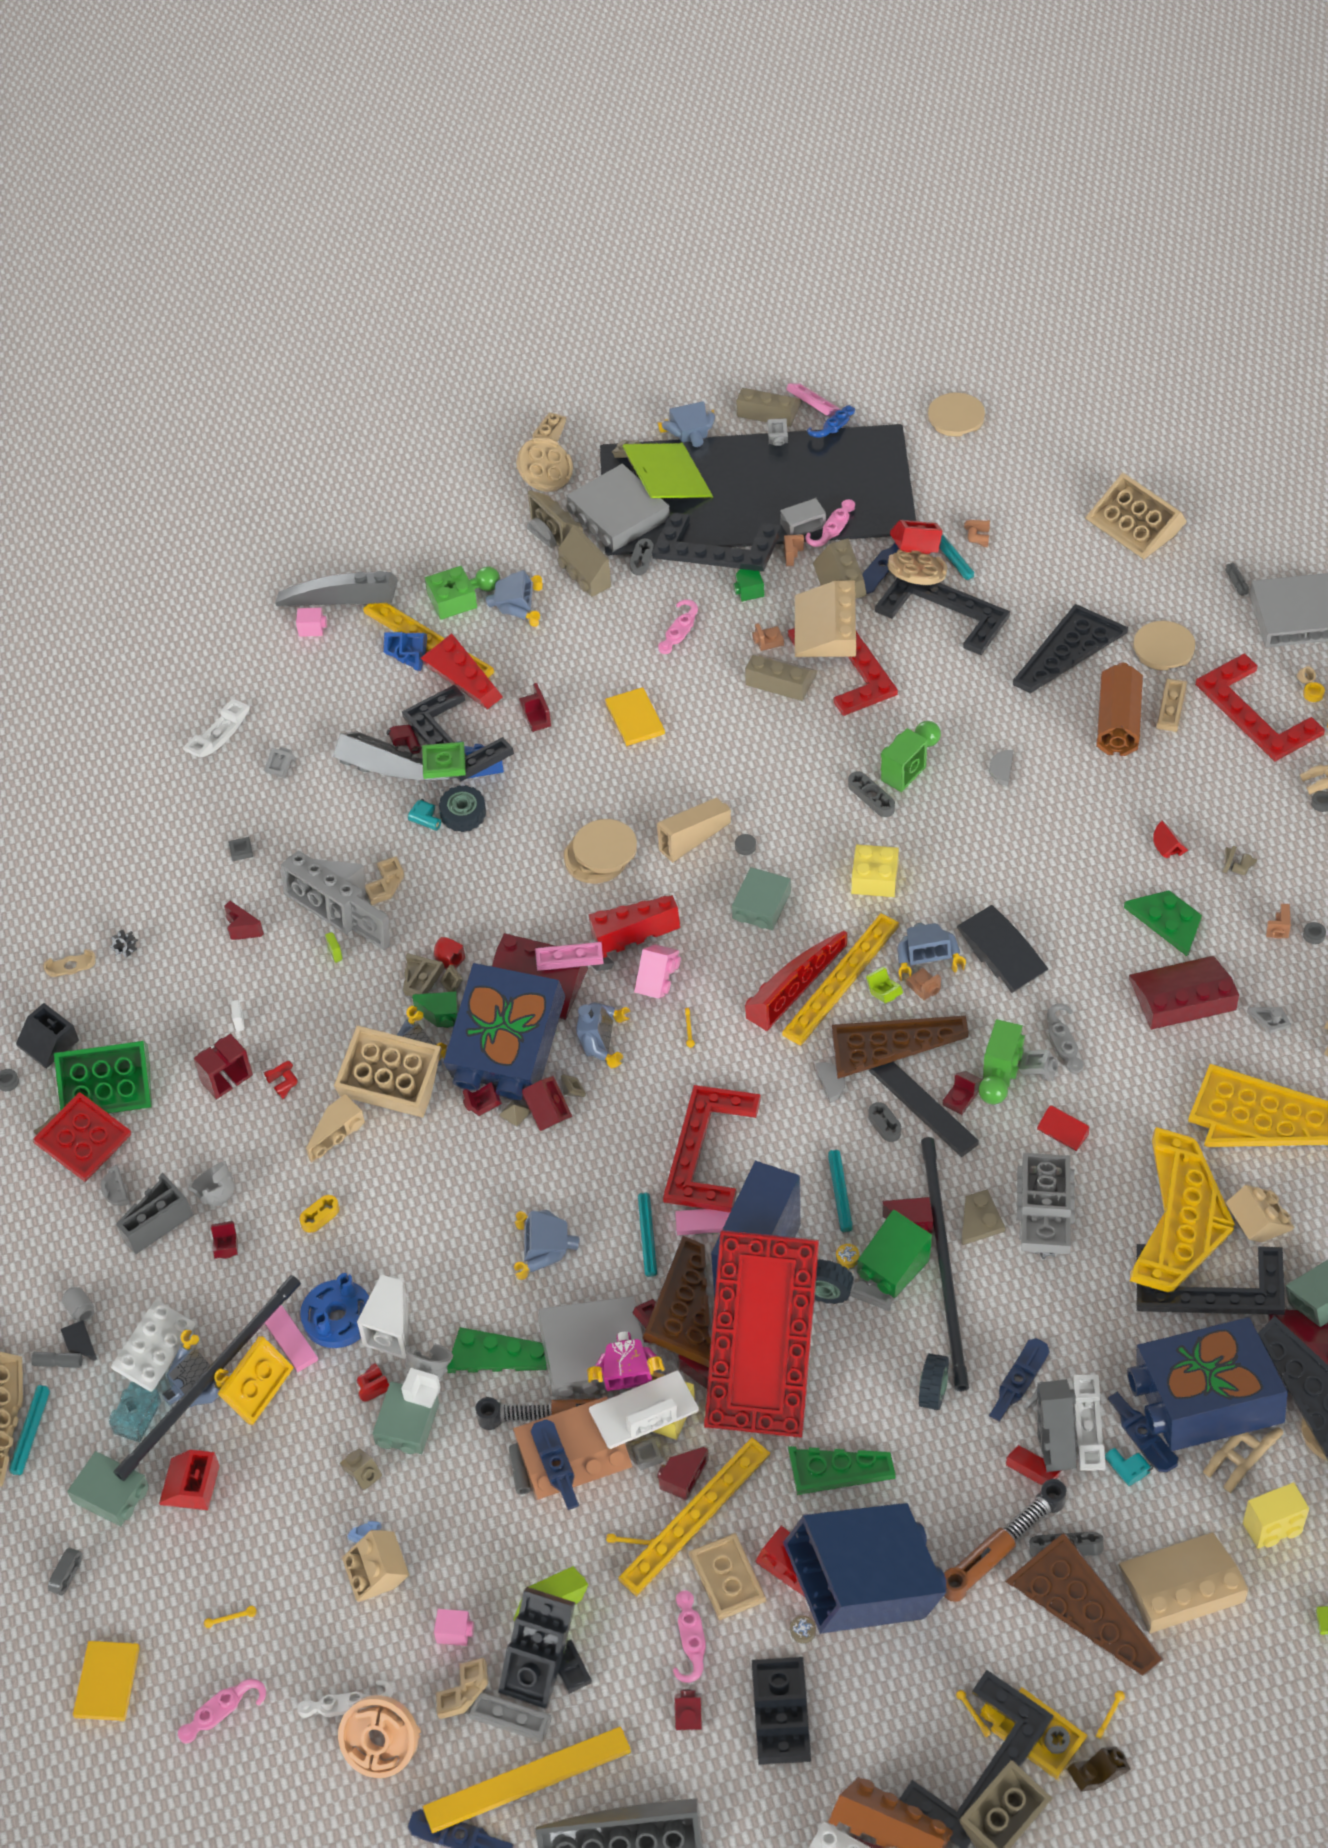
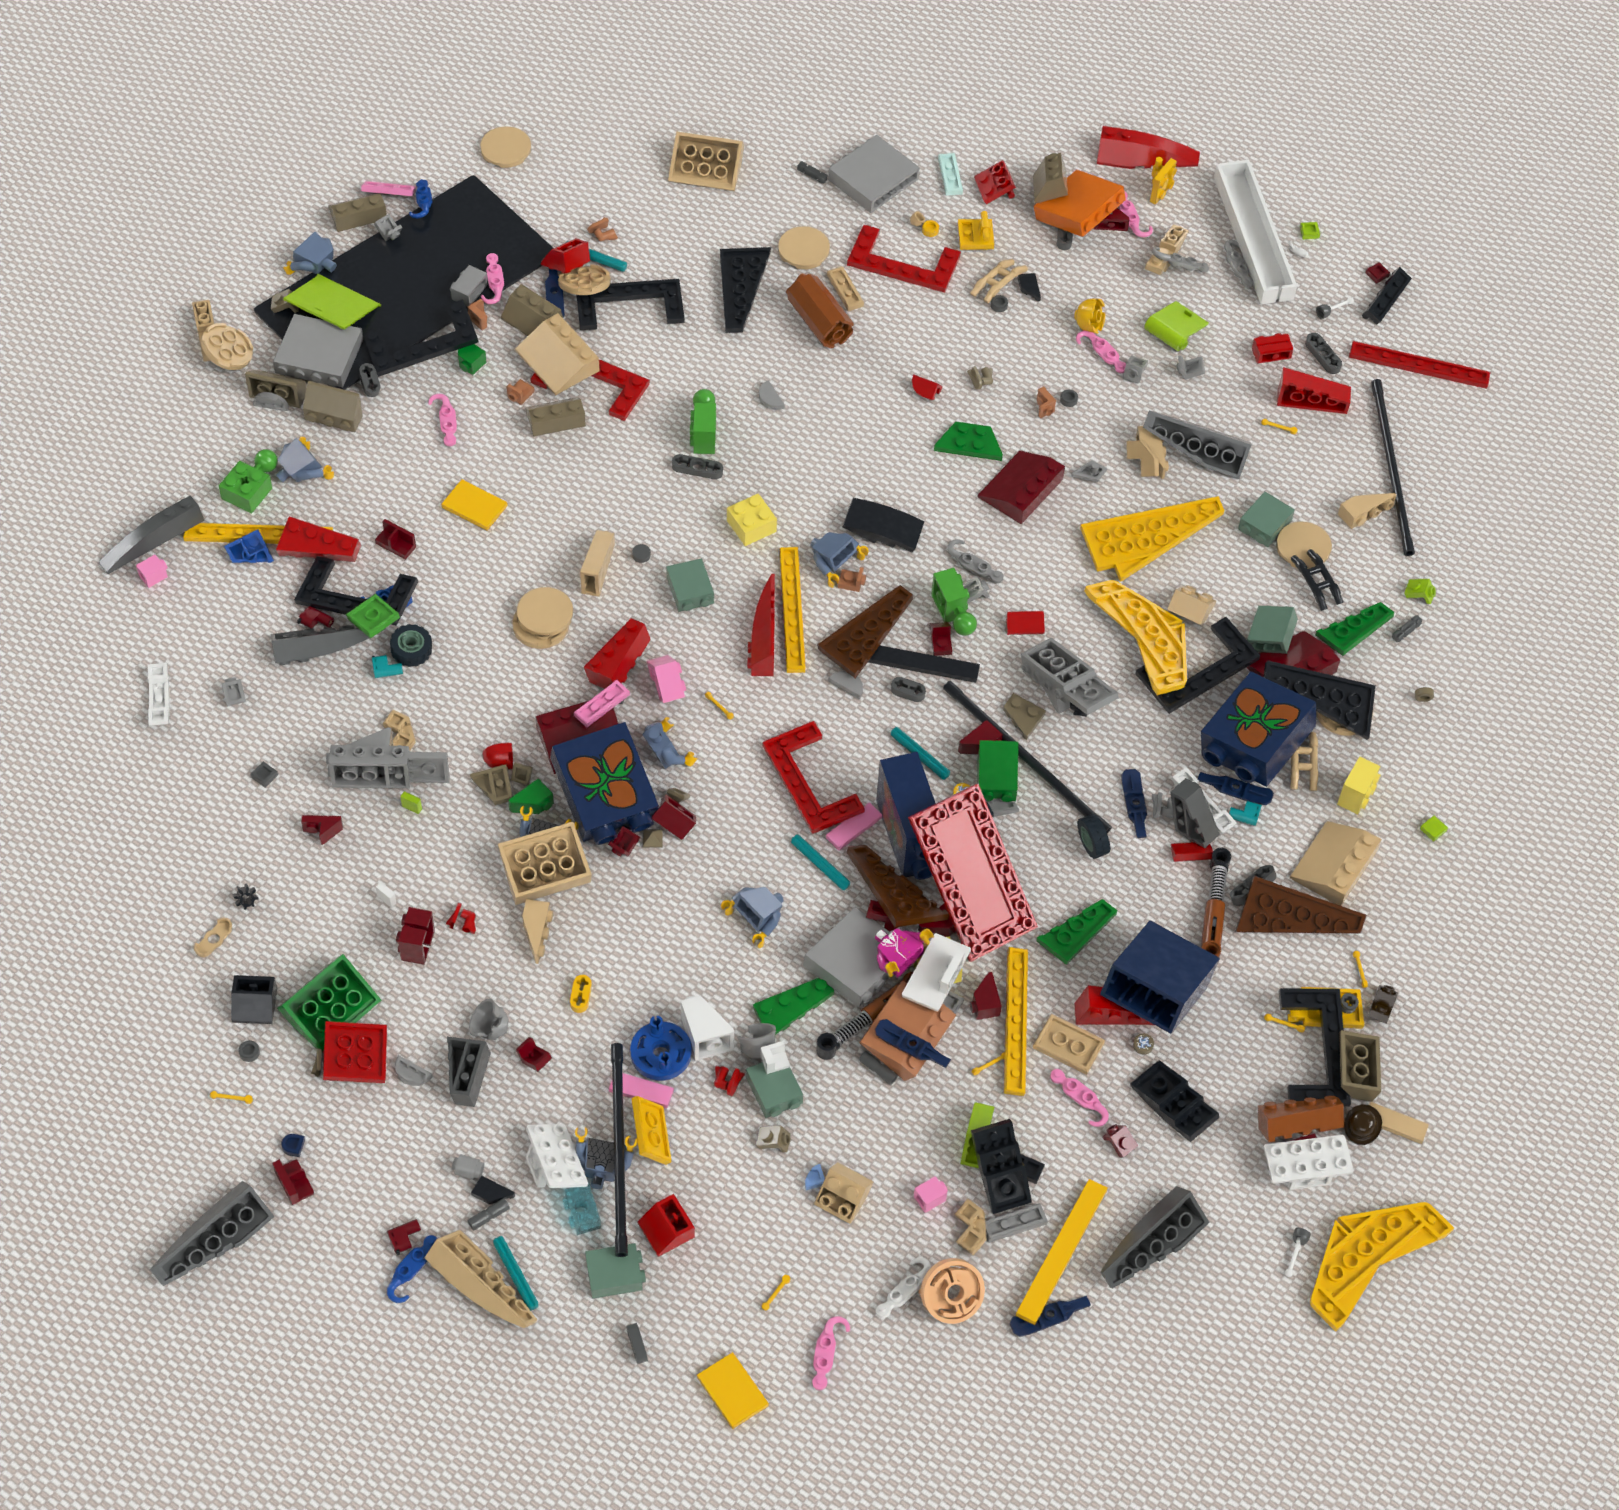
camera: 45 degrees left, 5 degrees up
(882, 986) = (828, 598): lime bracket -> none

